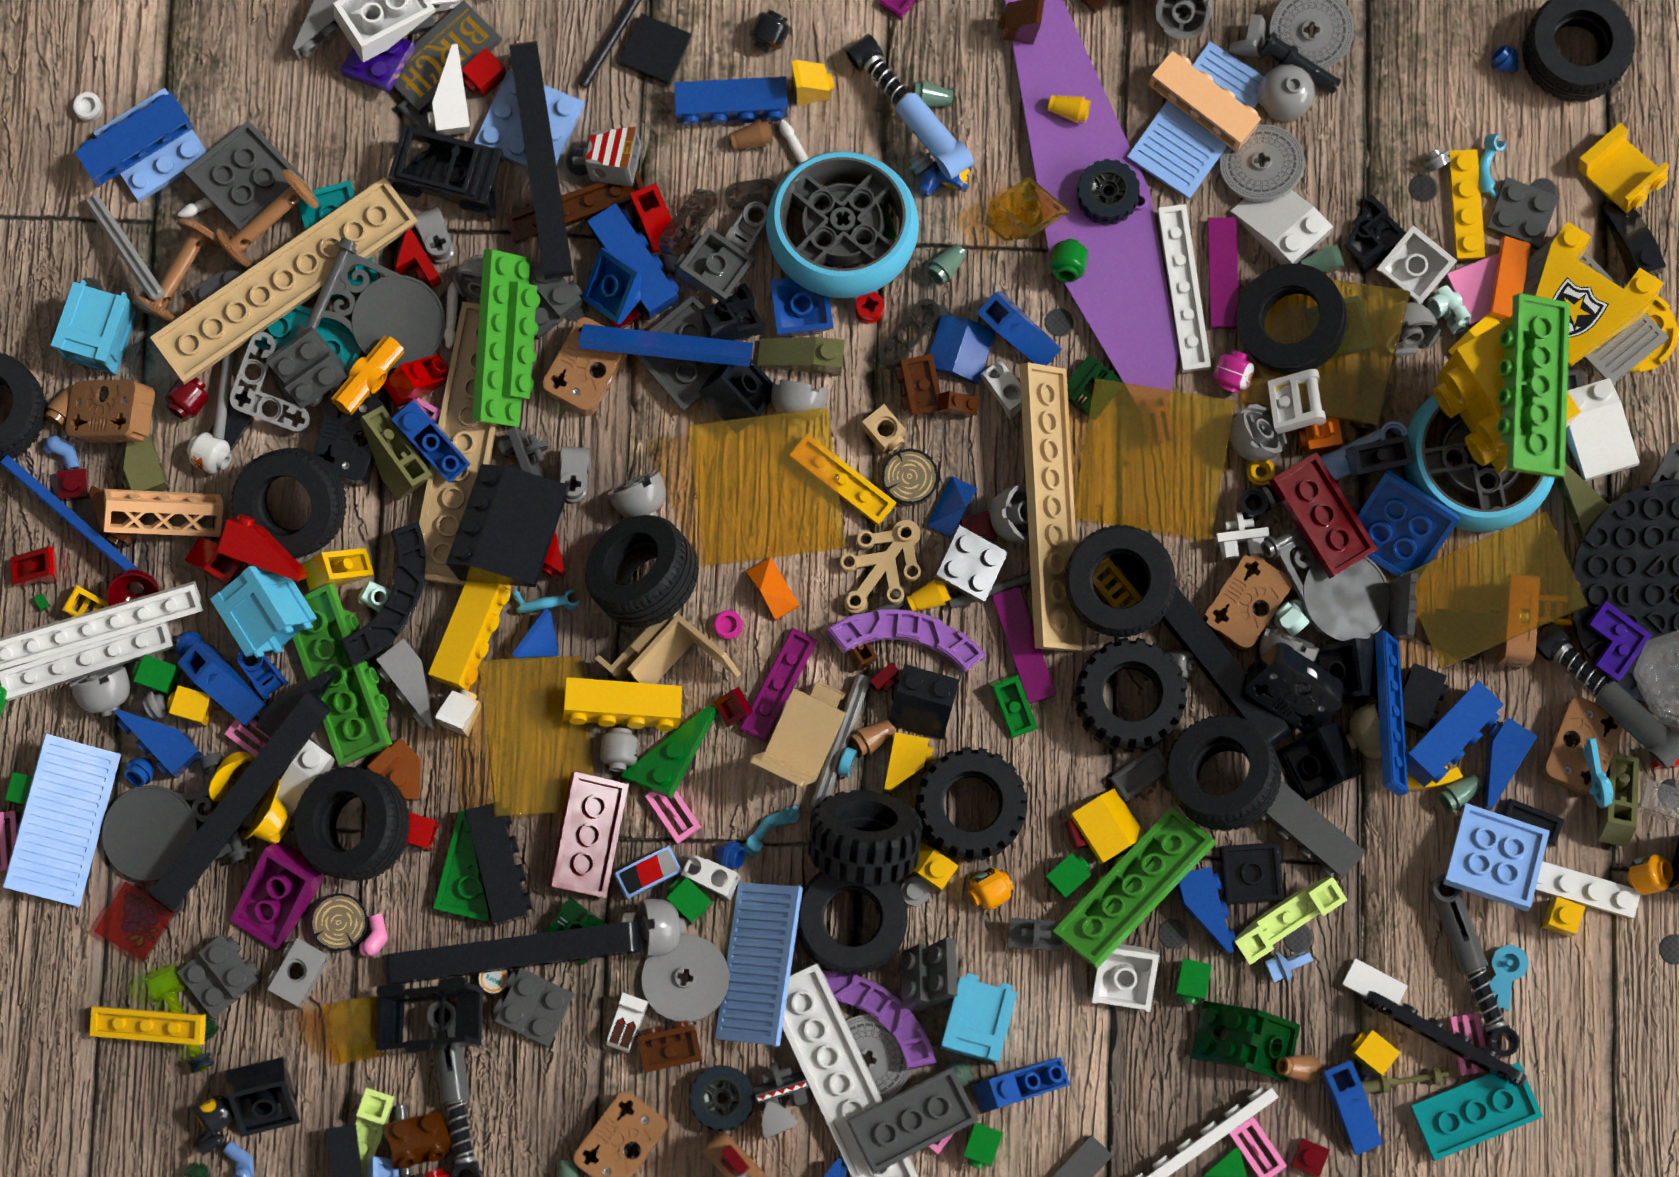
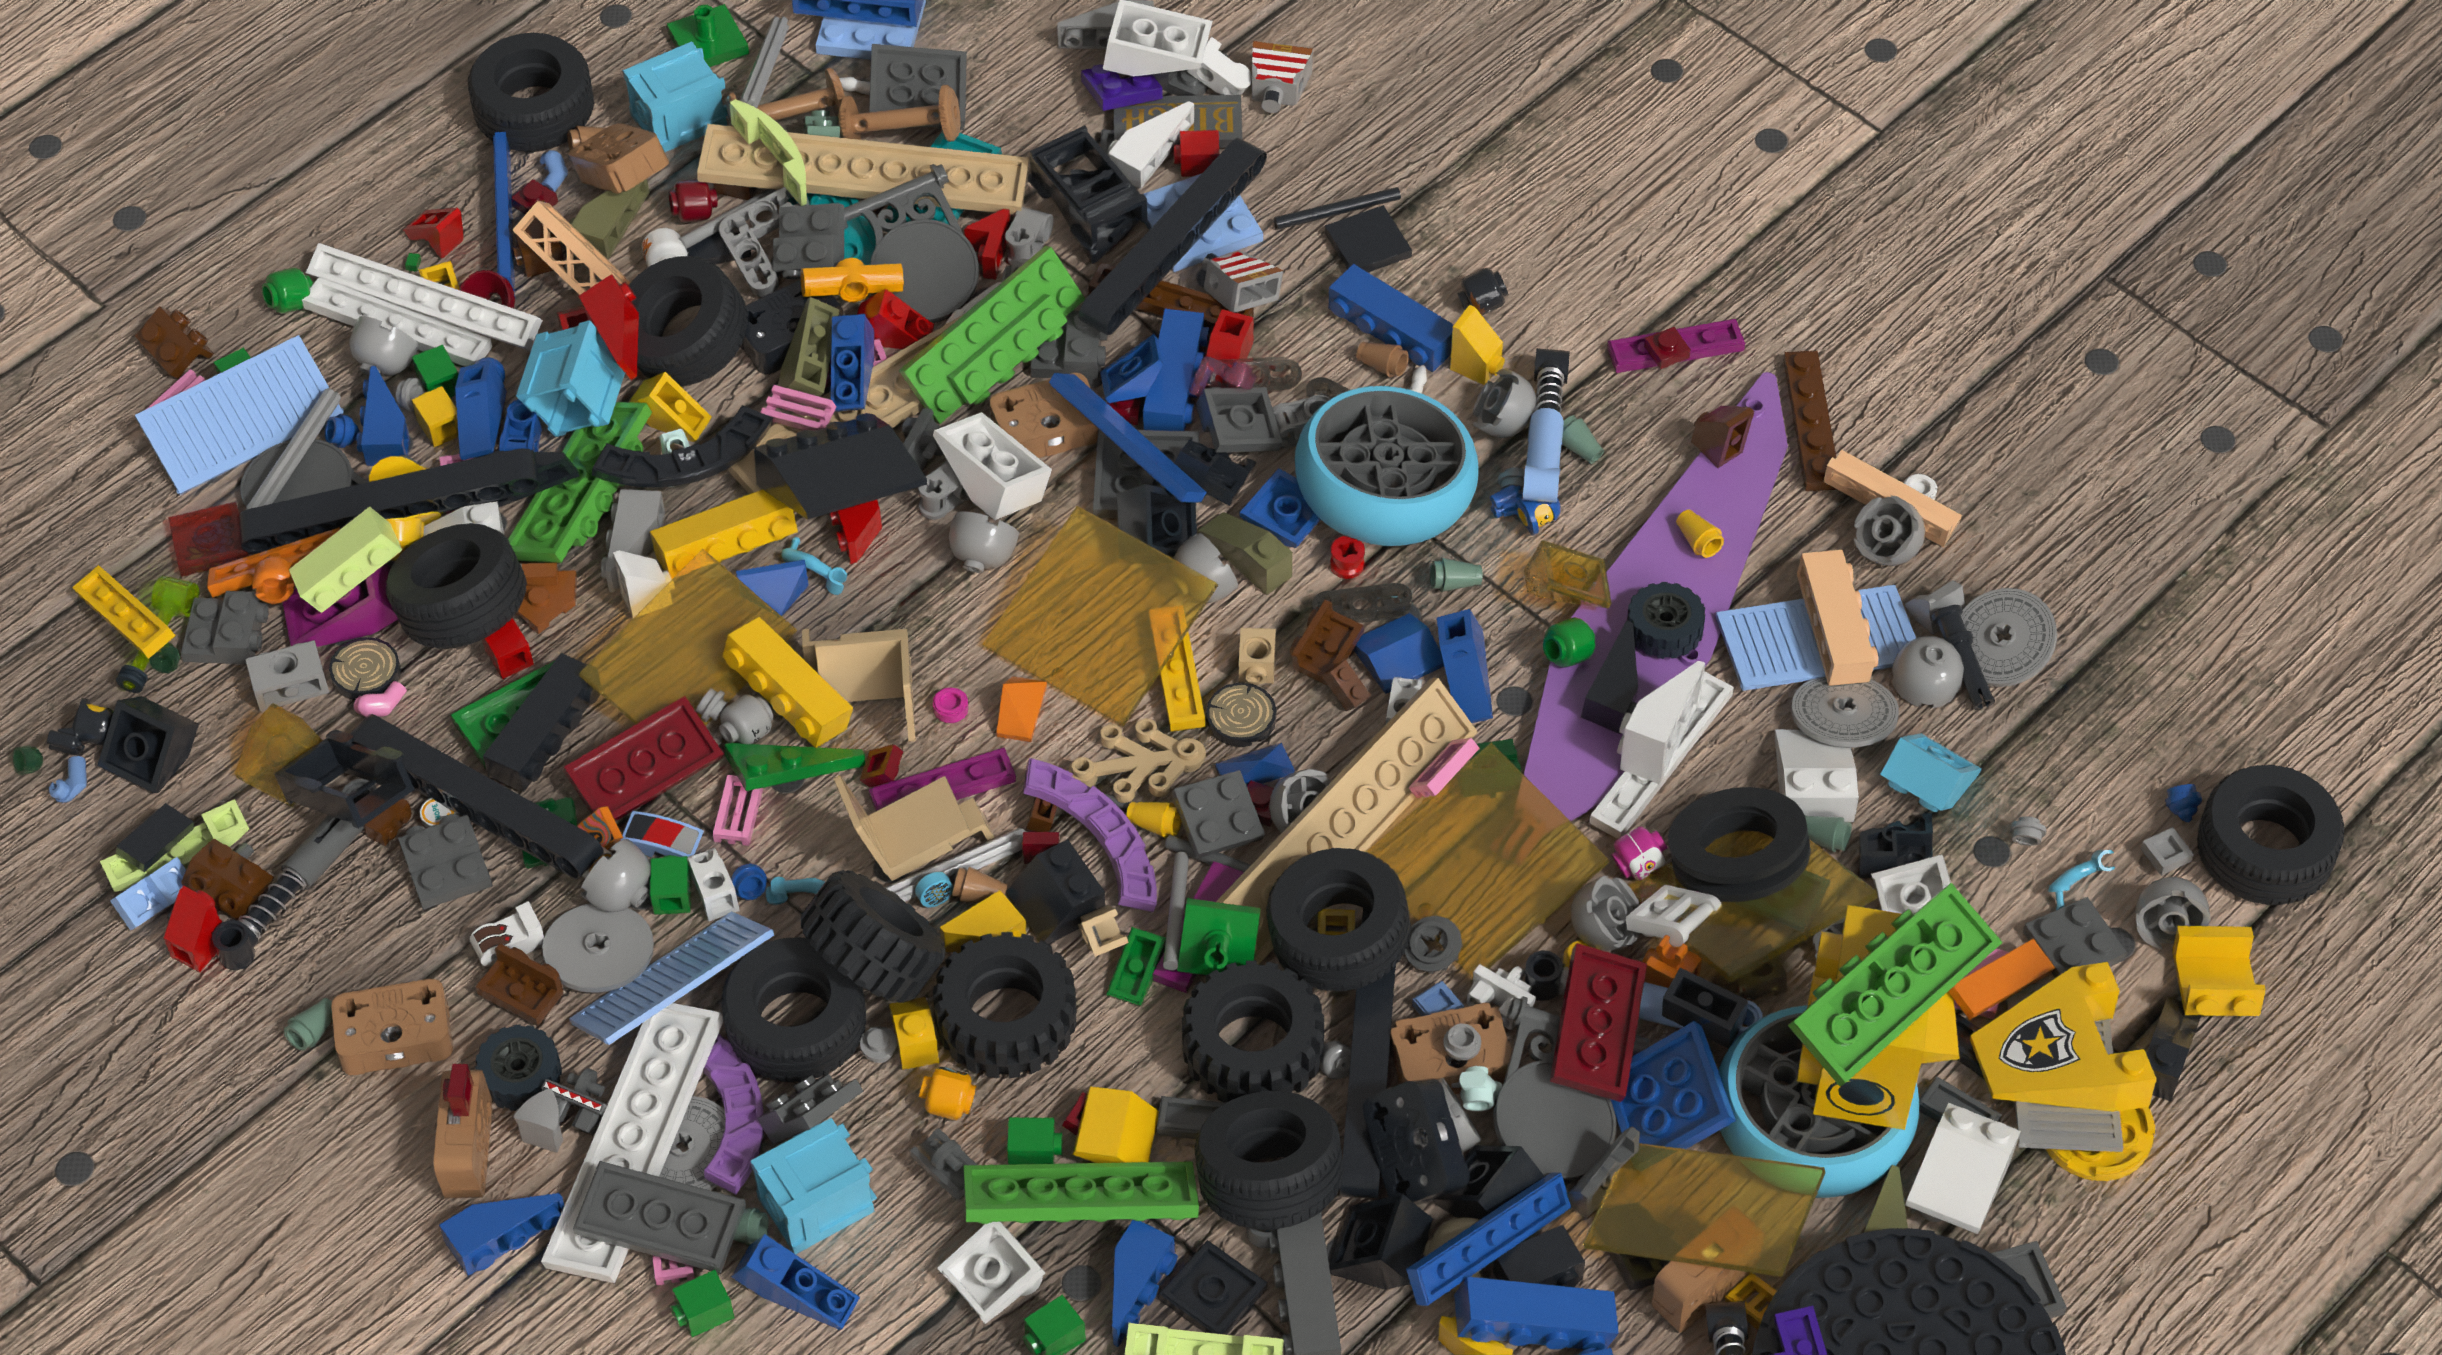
camera: 45 degrees right, 25 degrees down
(54, 254) = (712, 31): none -> green tile
(129, 817) = (296, 449): none -> light grey axle
(186, 315) = (756, 125): none -> yellowish green slope
(212, 908) = (265, 570): none -> orange plate
(215, 267) = (821, 124): none -> sand green slope
(267, 871) = (345, 559): none -> yellowish green brick
(407, 509) = (801, 398): none -> bright pink tile
(590, 759) = (711, 705): none -> light grey plate
(595, 436) = (992, 465): none -> white slope
(610, 904) = (602, 827): none -> orange tile
(656, 594) = (913, 584): black tyre -> none
(688, 238) = (1236, 373): none -> clear pink plate
(867, 112) = (1505, 405): none -> light grey cylinder
(978, 704) = (1101, 930): none -> tan window
(1005, 651) = (1176, 911): none -> light grey bar
(1059, 654) = (1217, 936): none -> green tile
(1080, 431) = (1444, 767): none -> bright pink tile
(1120, 263) = (1615, 685): none -> black slope
(1182, 529) = (1431, 929): none -> dark grey gear
(1184, 286) = (1659, 724): none -> white slope
(1207, 575) = (1436, 999): none -> medium blue tile
(1222, 272) = (1718, 767): magenta tile -> none
(1258, 597) = (1462, 1042): none -> light grey plate
(1348, 164) = (1929, 772): none -> medium azure slope
(1466, 205) = (2027, 887): yellow plate -> none
(1524, 104) = (2167, 851): none -> light grey plate
(1564, 147) = (2167, 905): none -> light grey cylinder

